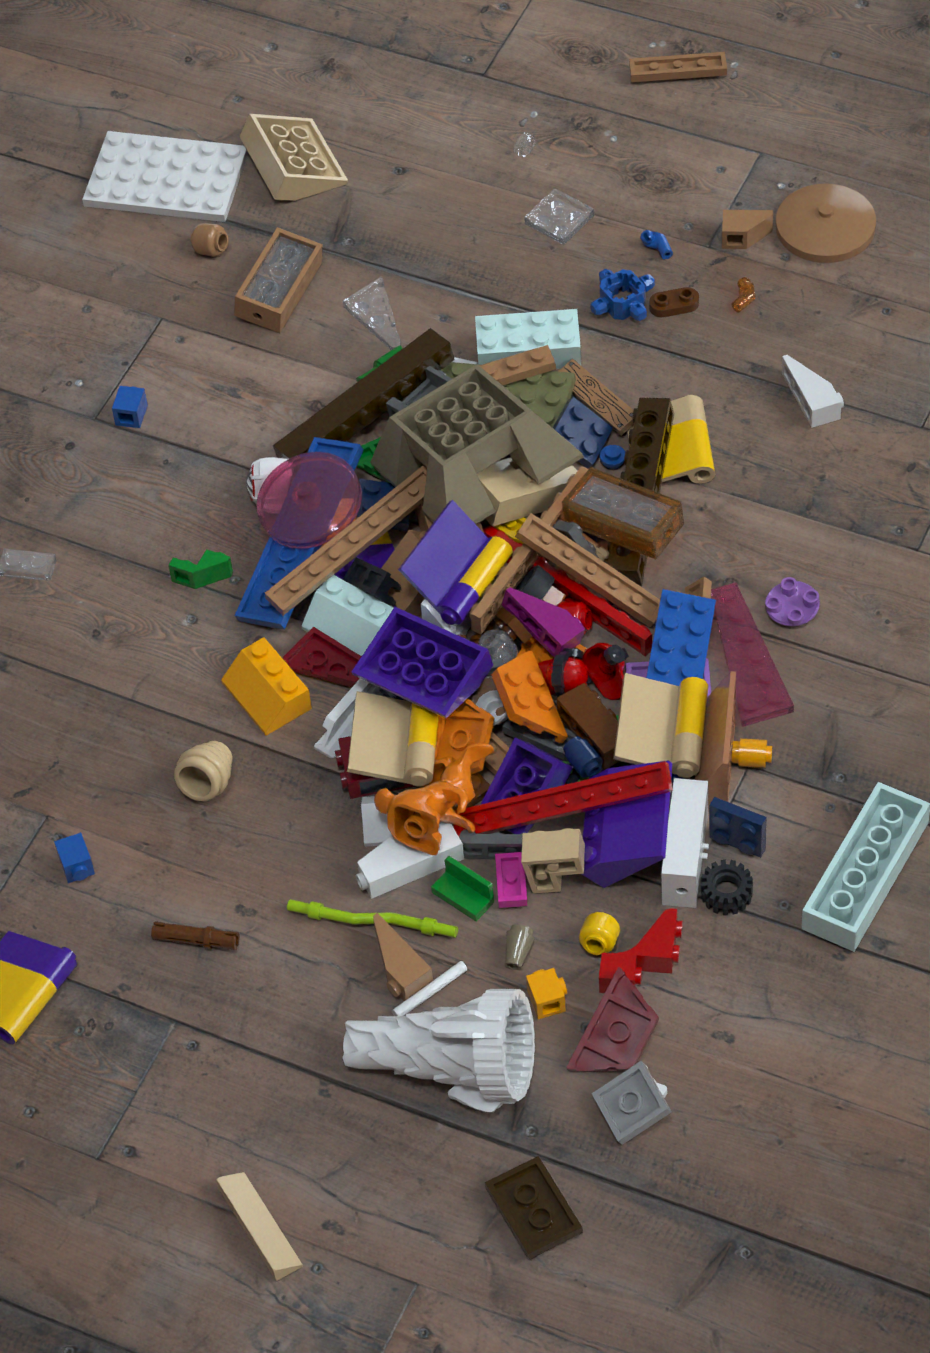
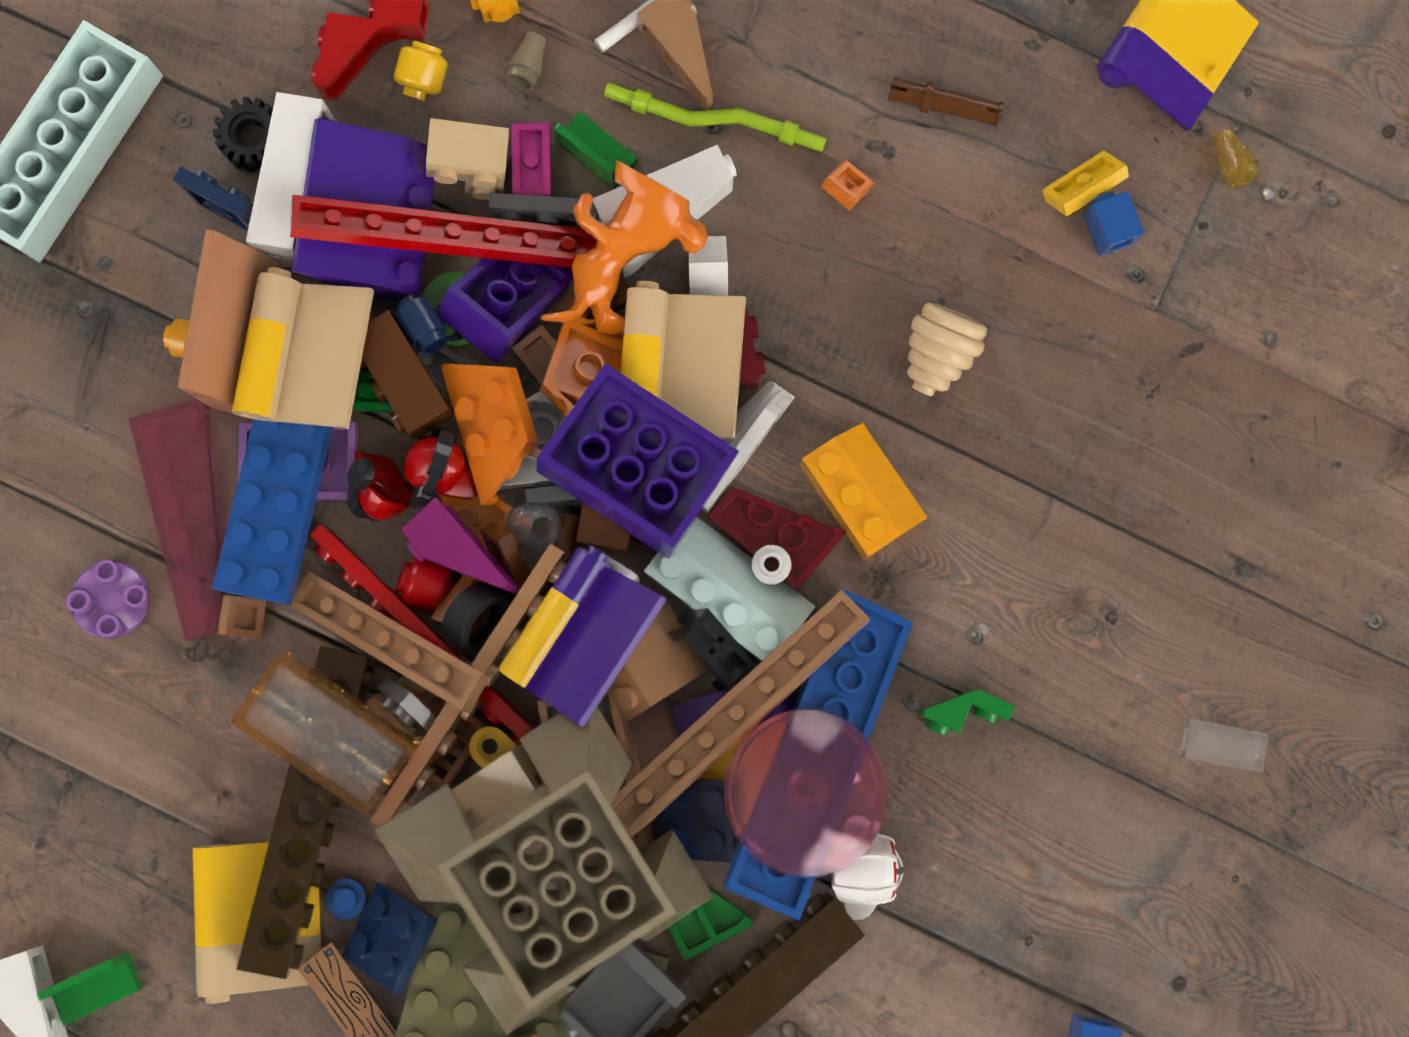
camera: 175 degrees right, 30 degrees up
(93, 883) = (1085, 183): none -> yellow plate
(271, 876) = (847, 184): none -> orange tile
(331, 640) = (771, 577): none -> white plate
(773, 405) = (94, 988): none -> green panel

